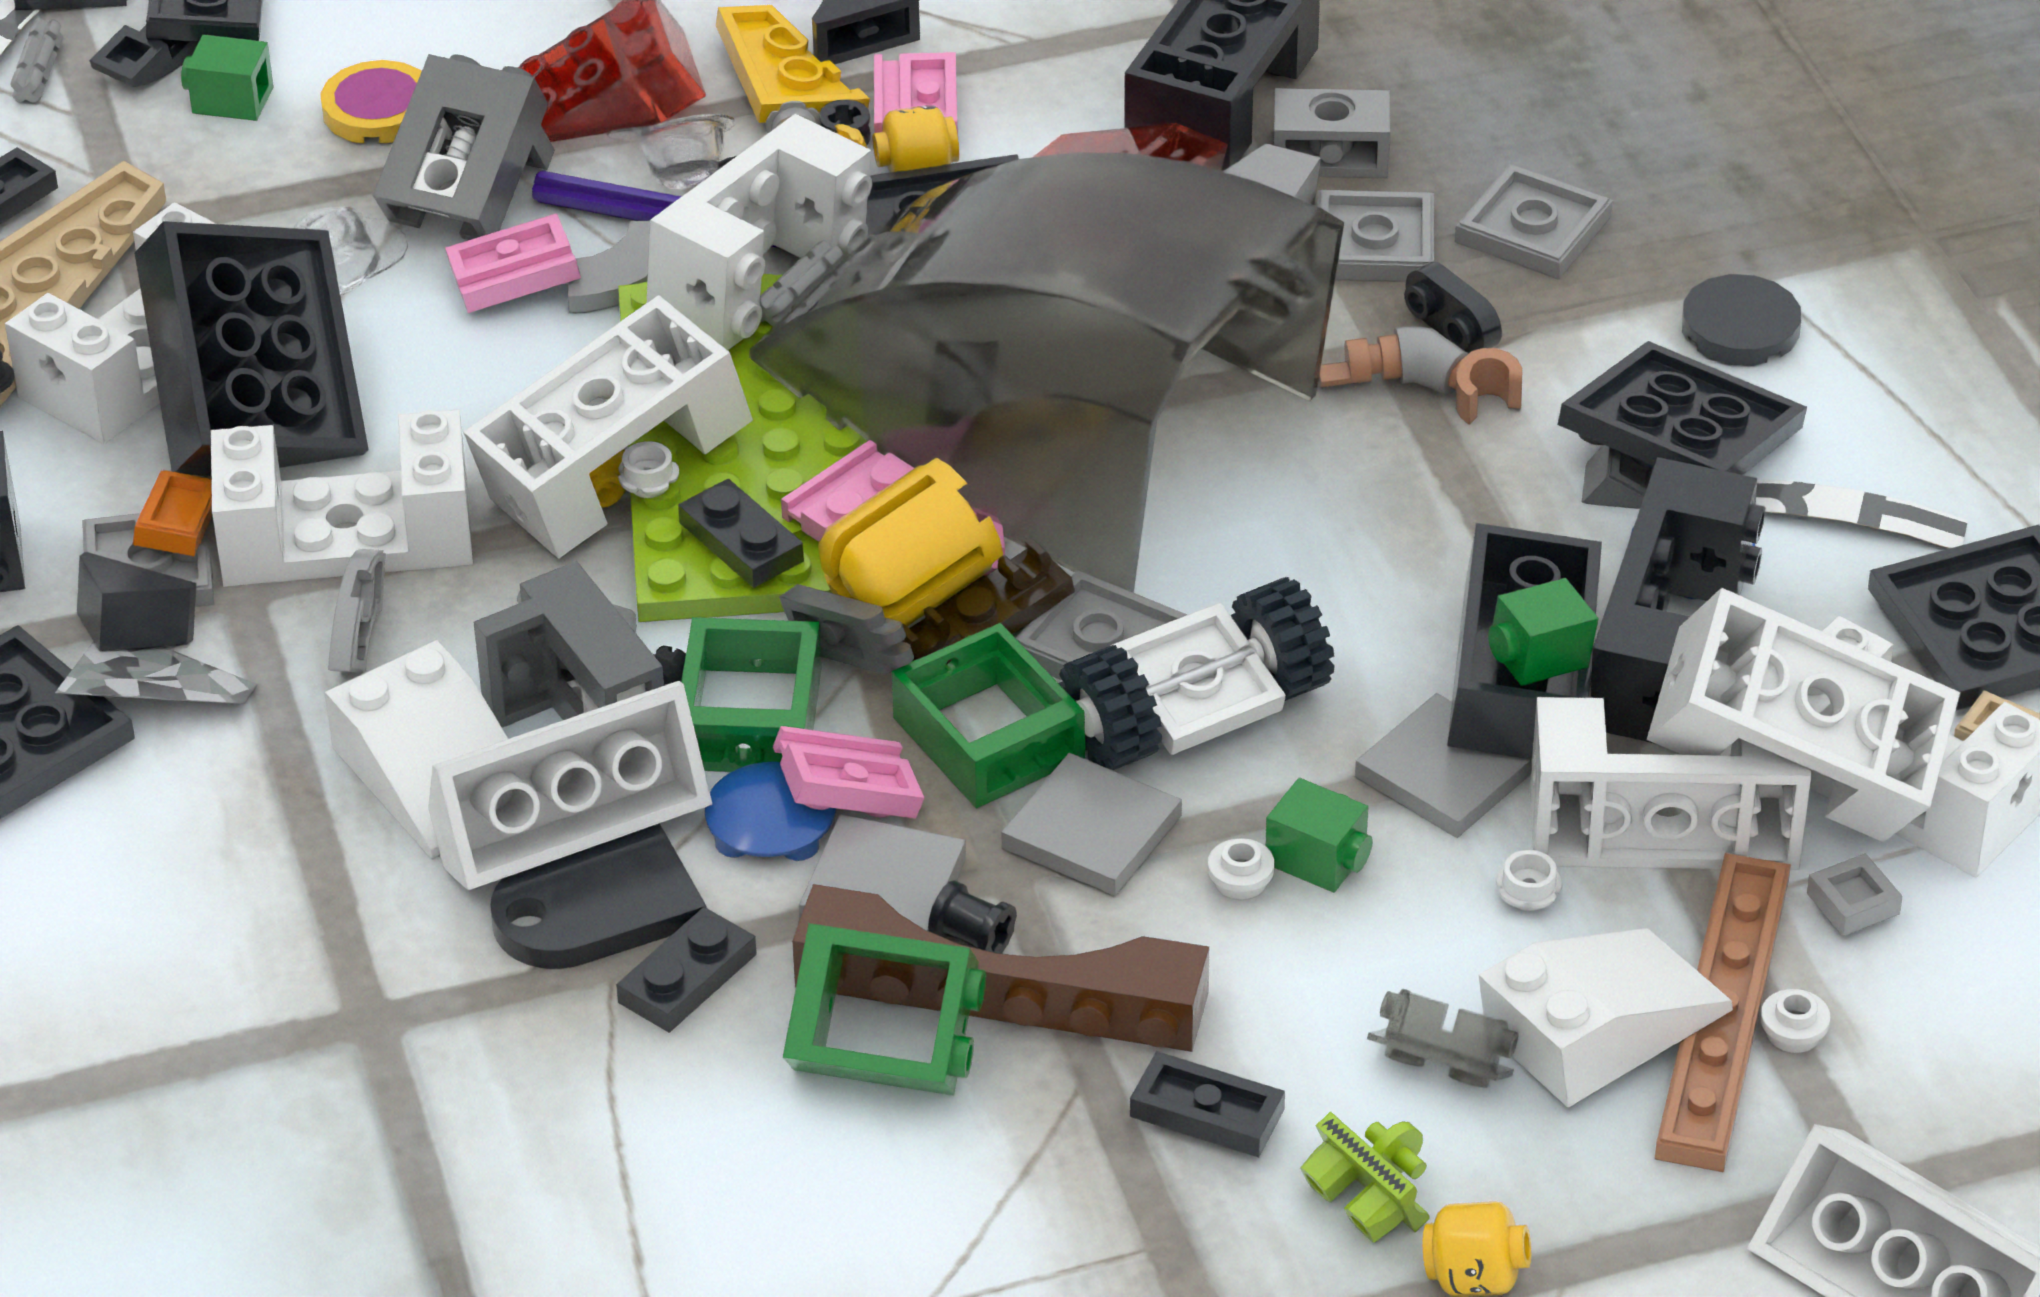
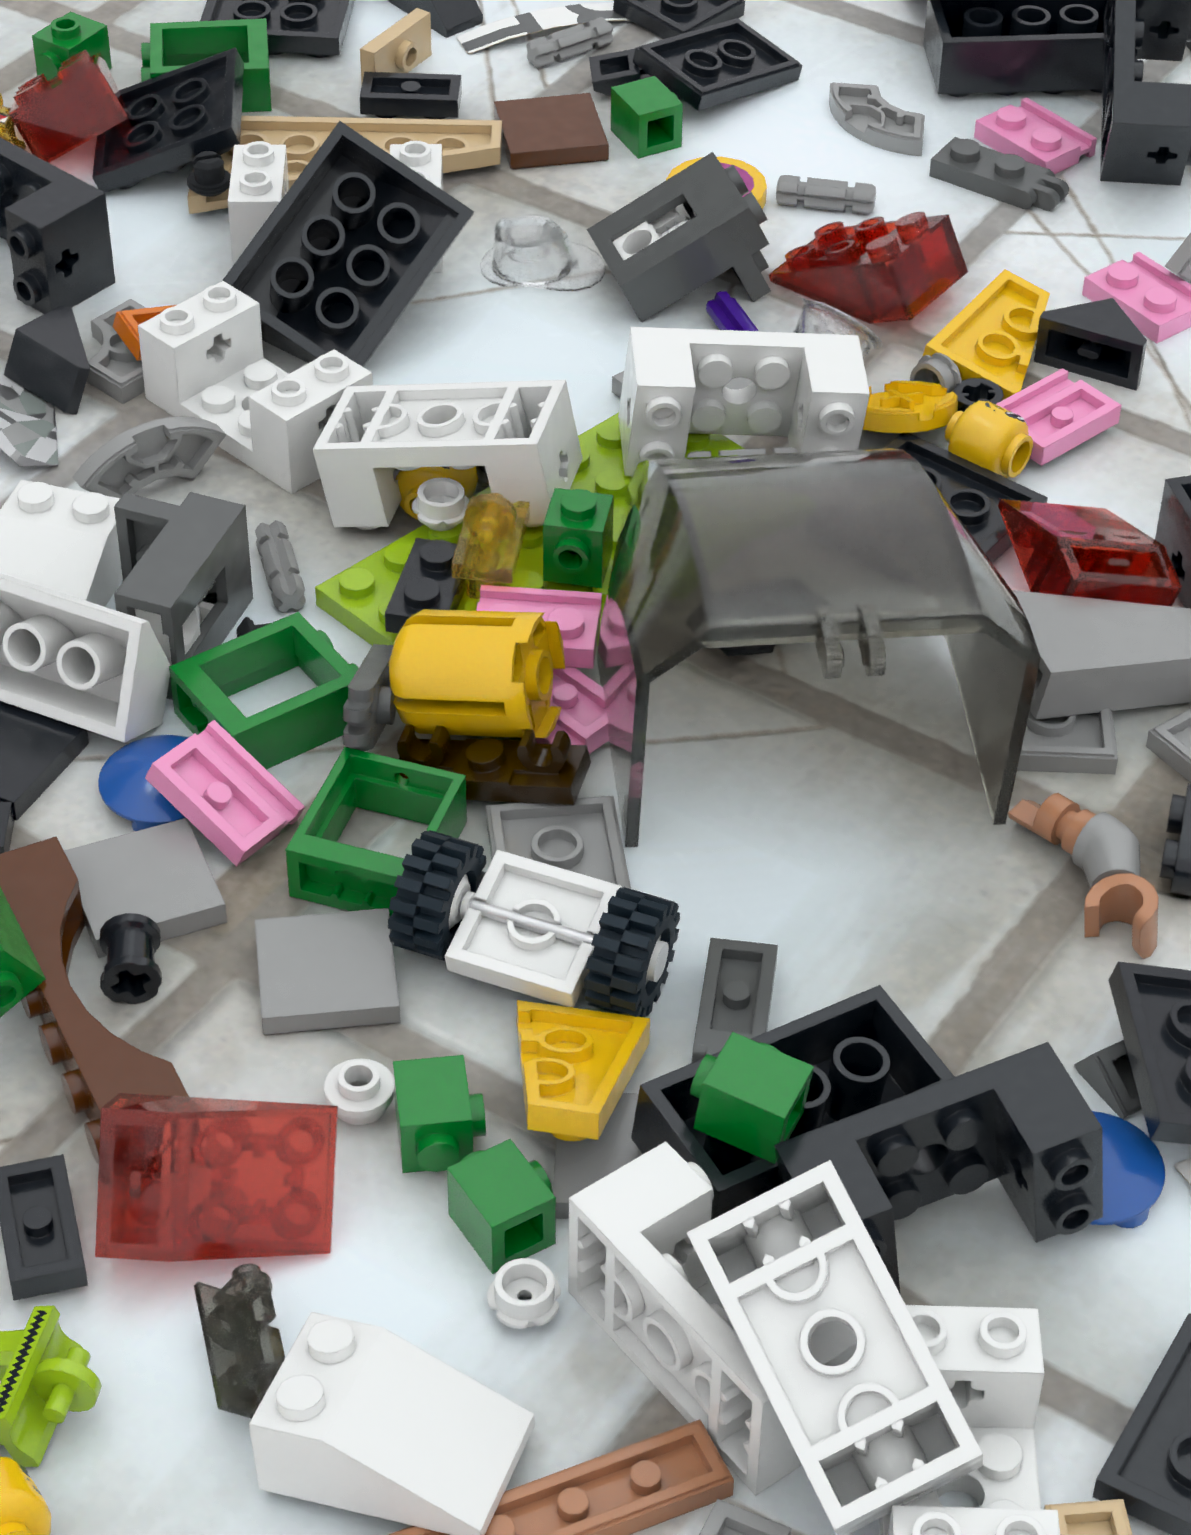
camera: 50 degrees right, 0 degrees up
(159, 139) = (551, 131): none -> reddish brown tile
(474, 39) = (826, 194): none -> light grey axle
(512, 263) = (601, 328): bright pink plate -> none
(749, 460) = (490, 541): none -> clear yellow hips
(798, 413) = (578, 537): none -> green brick
(1281, 974) = (214, 1178): none -> clear red slope
(1355, 731) = (576, 1066): none -> yellow wing
(1379, 632) = (734, 993): none -> dark grey hinge
(1439, 845) = (502, 1204): none -> green brick

